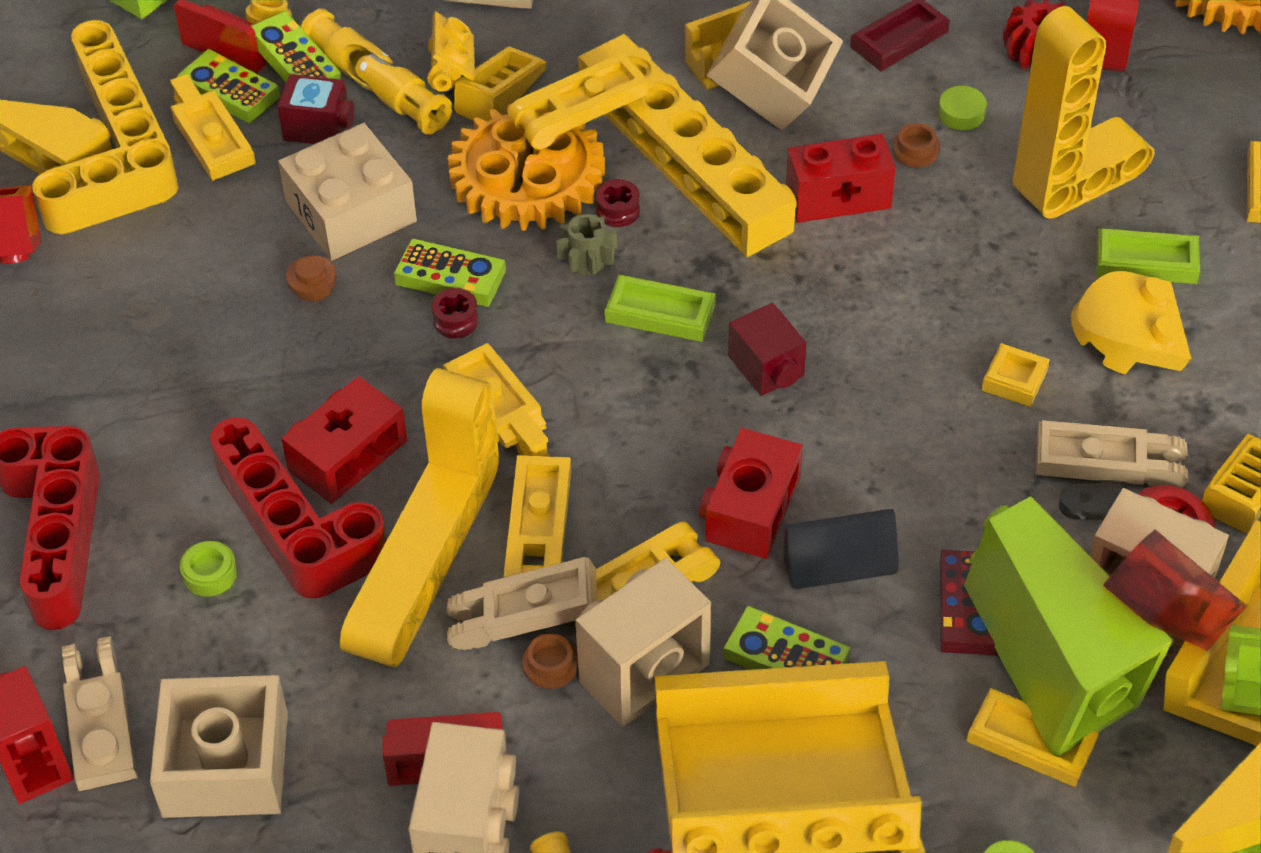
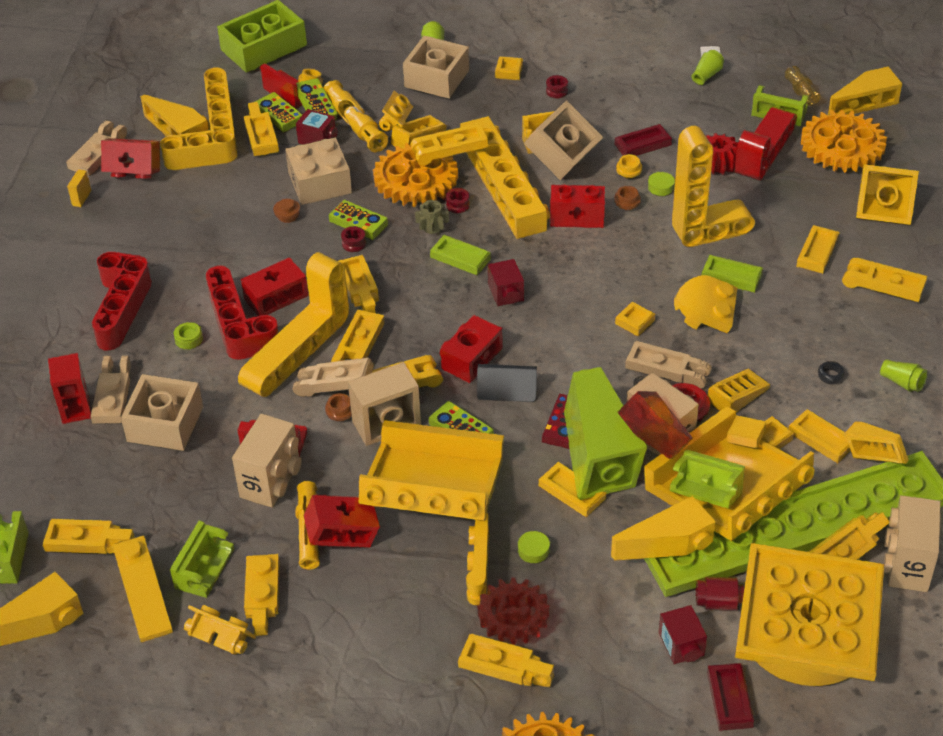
camera: 15 degrees right, 5 degrees down
(896, 85) = (629, 166): none -> yellow plate

